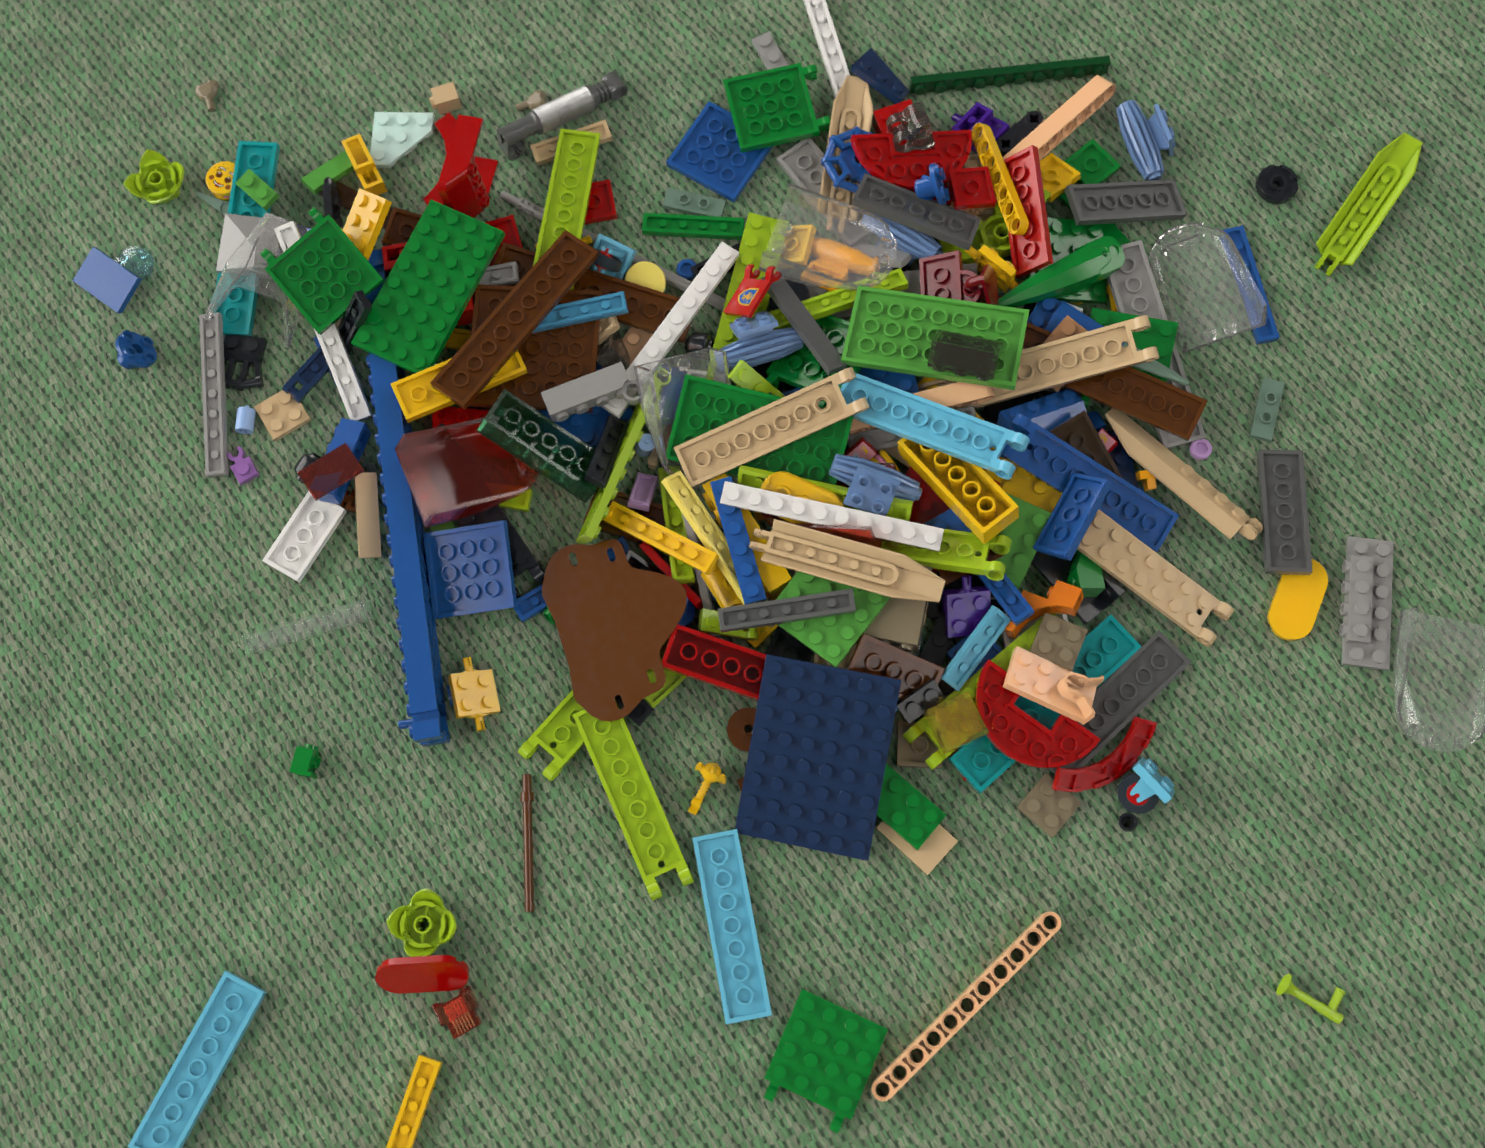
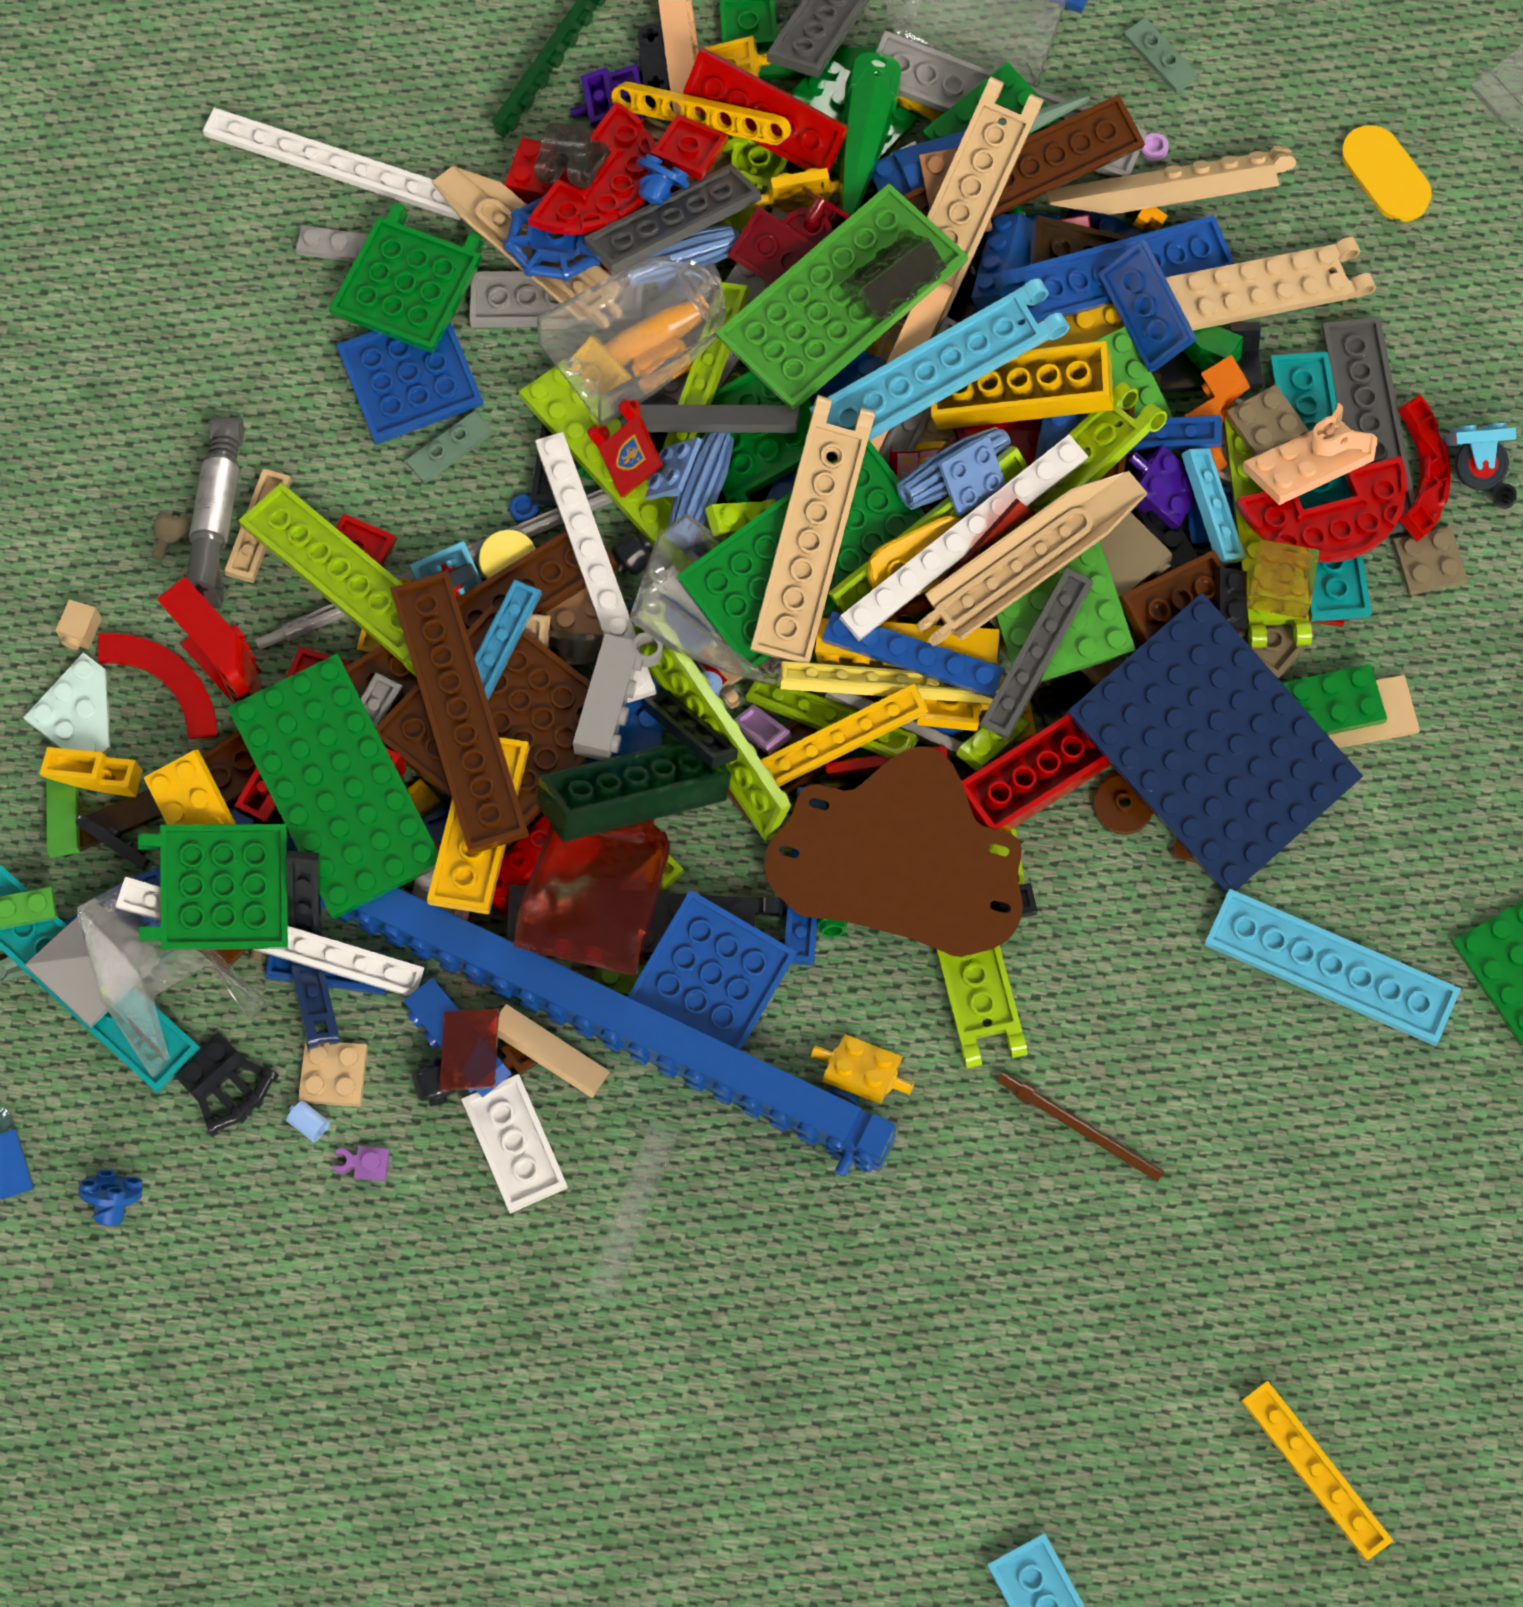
camera: 55 degrees left, 5 degrees down
(214, 396) = (249, 1137): light grey tile -> none
(305, 761) = (800, 1313): green brick -> none
(406, 920) = (1111, 1277): lime brick -> none
(422, 974) = (1153, 1334): red tile -> none
(459, 1013) = (1224, 1325): clear red piece -> none
(633, 800) = (1117, 974): lime hinge -> none
(693, 226) = (477, 465): green plate -> none
(711, 773) = (1147, 873): yellow piece -> none
(879, 76) = (454, 152): dark blue wing -> none
(1284, 512) = (1286, 117): dark grey plate -> none
(1367, 603) = (1439, 114): light grey plate -> none

